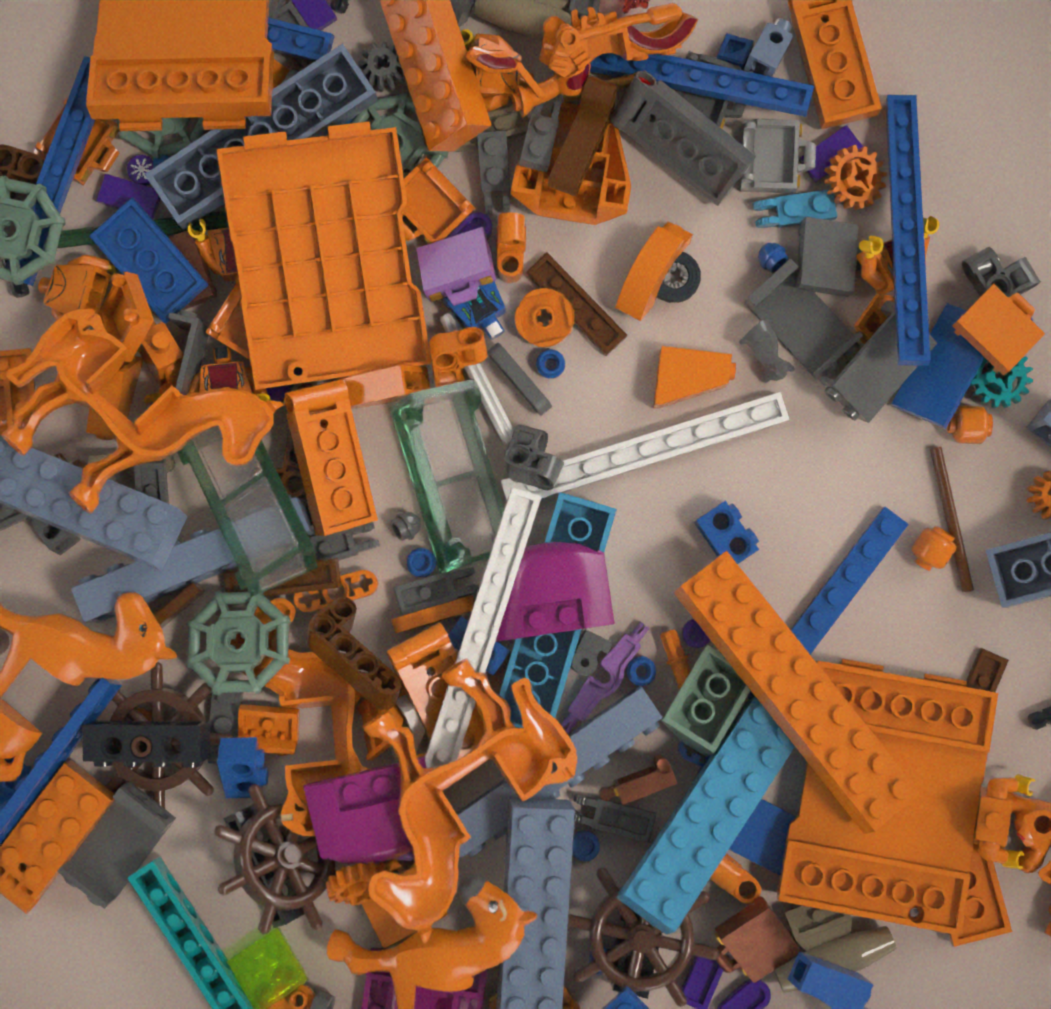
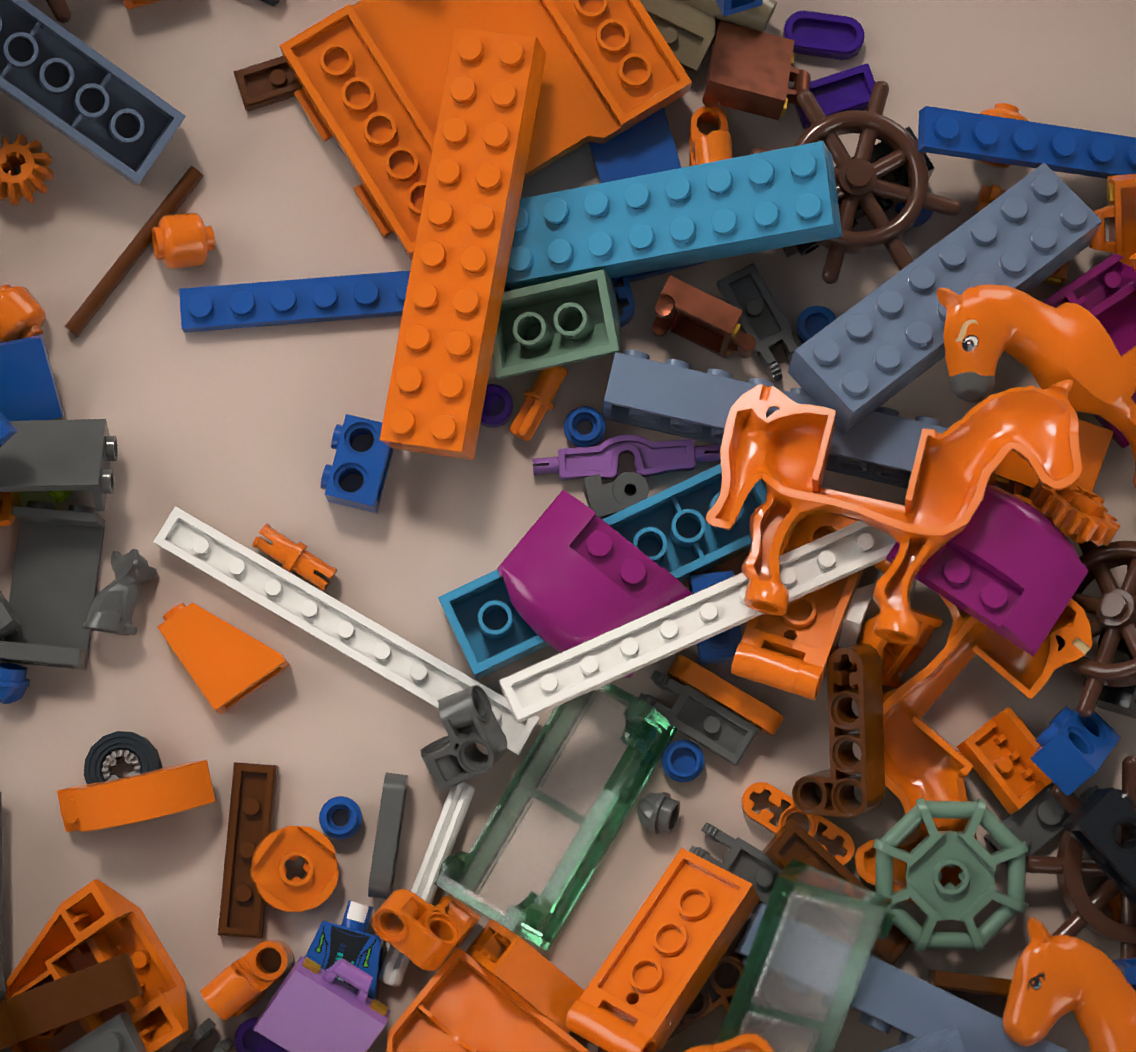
camera: 135 degrees left, 5 degrees down
(707, 457) = (294, 557): none -> orange pin

